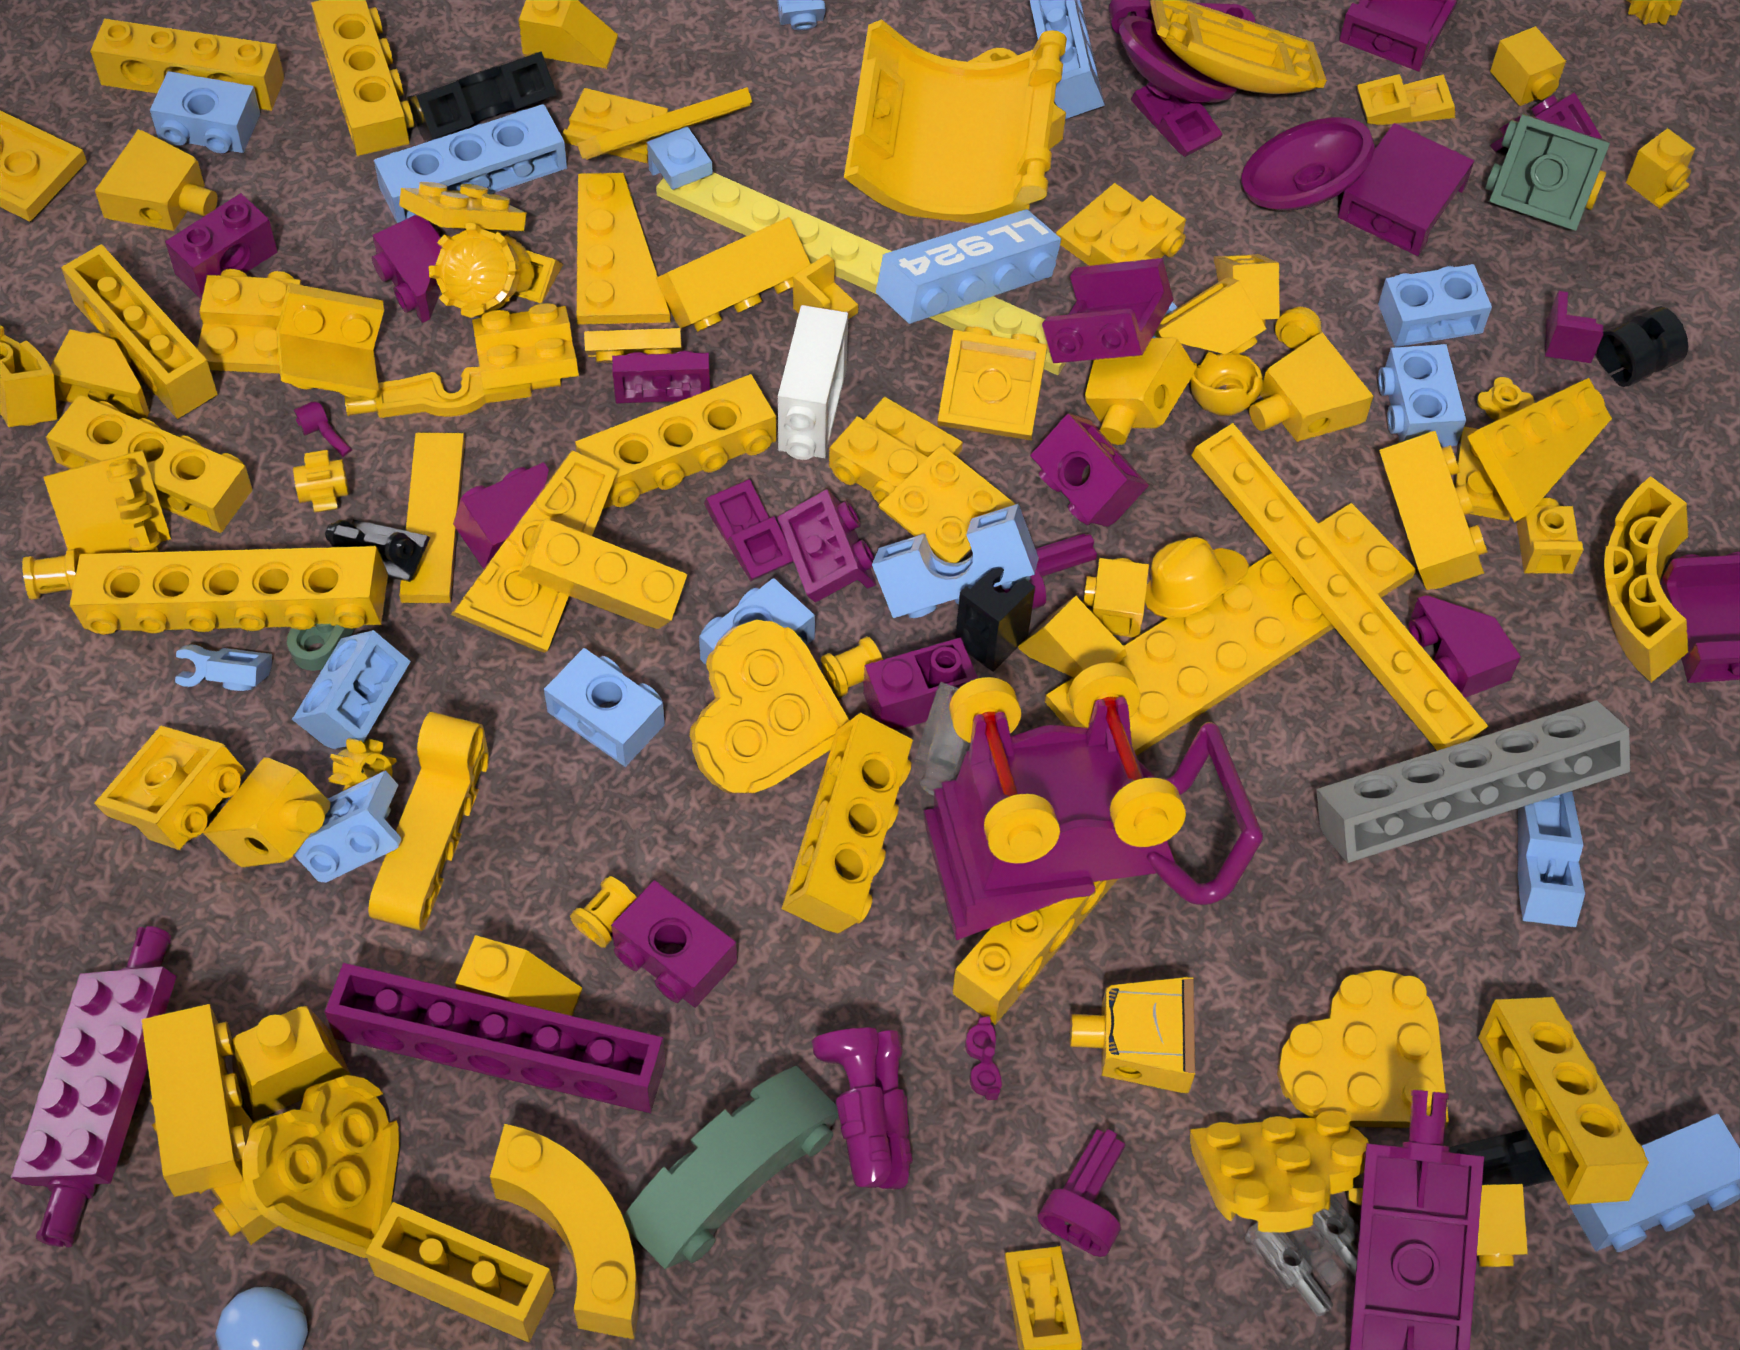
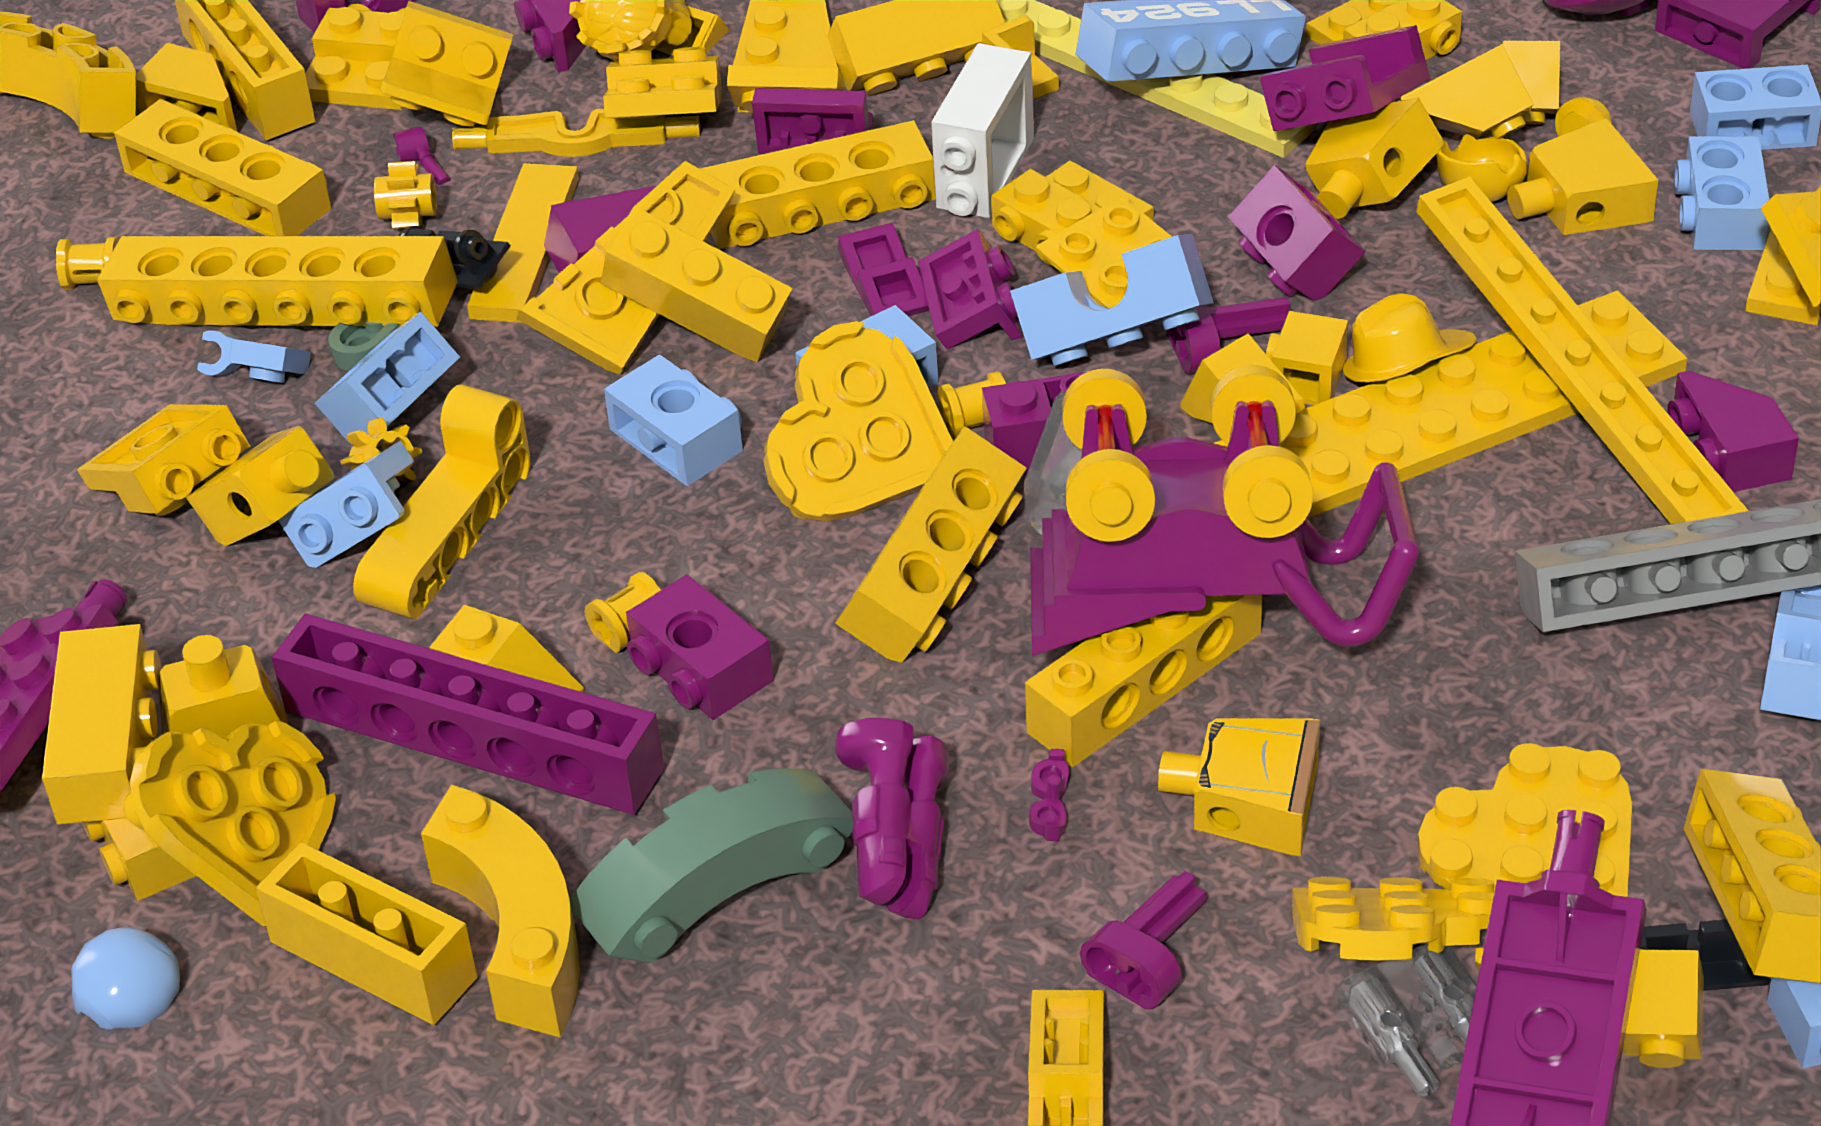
camera: 15 degrees right, 15 degrees down
(108, 506) = (163, 191): yellow hinge -> none
(992, 383) = (1199, 150): yellow plate -> none
(992, 621) = (1152, 350): black hinge -> none
(1434, 510) = (1717, 297): yellow brick -> none

